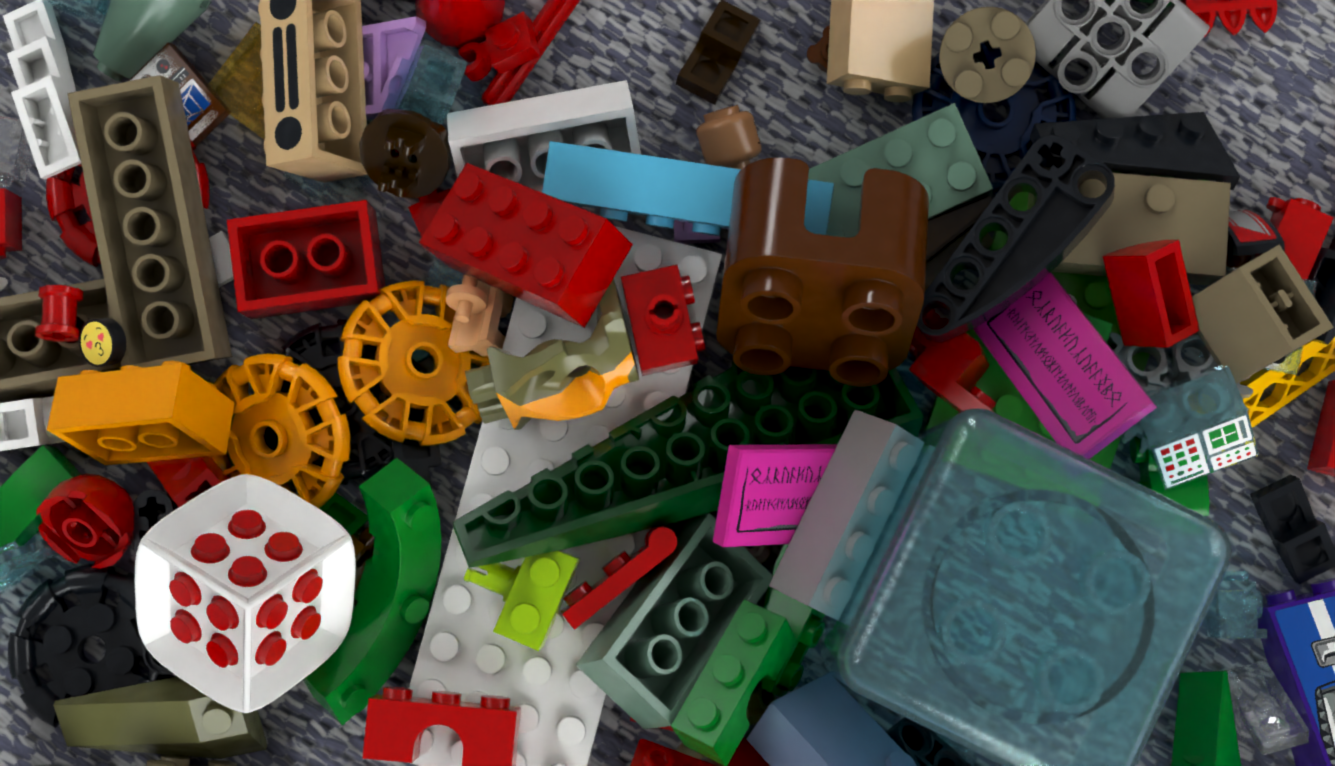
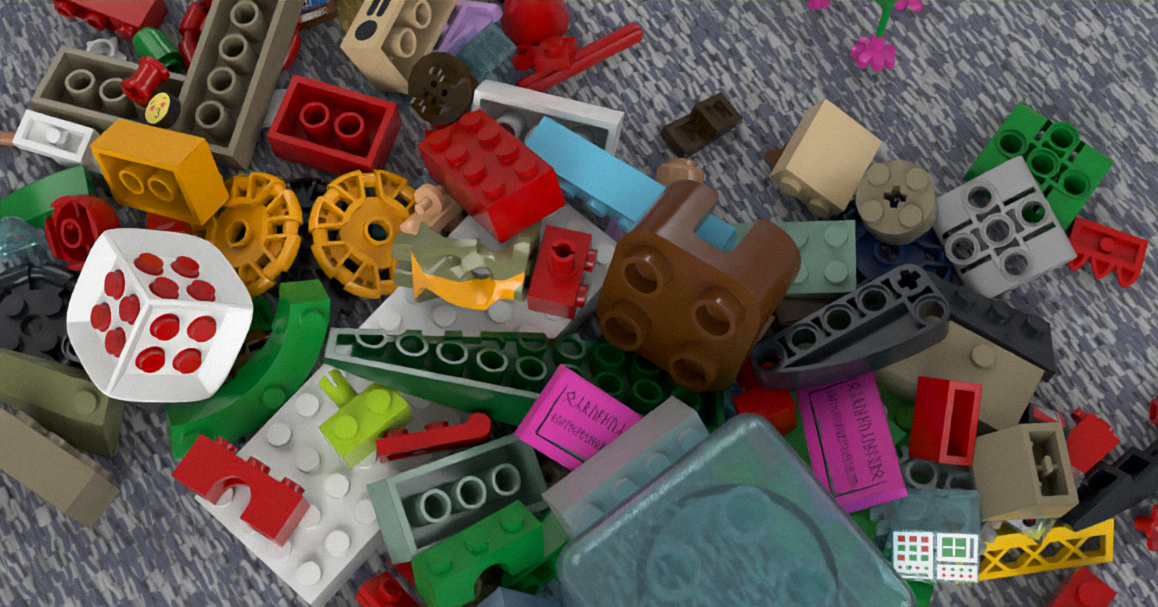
camera: 25 degrees right, 15 degrees down
(42, 259) = (157, 45): none -> green brick

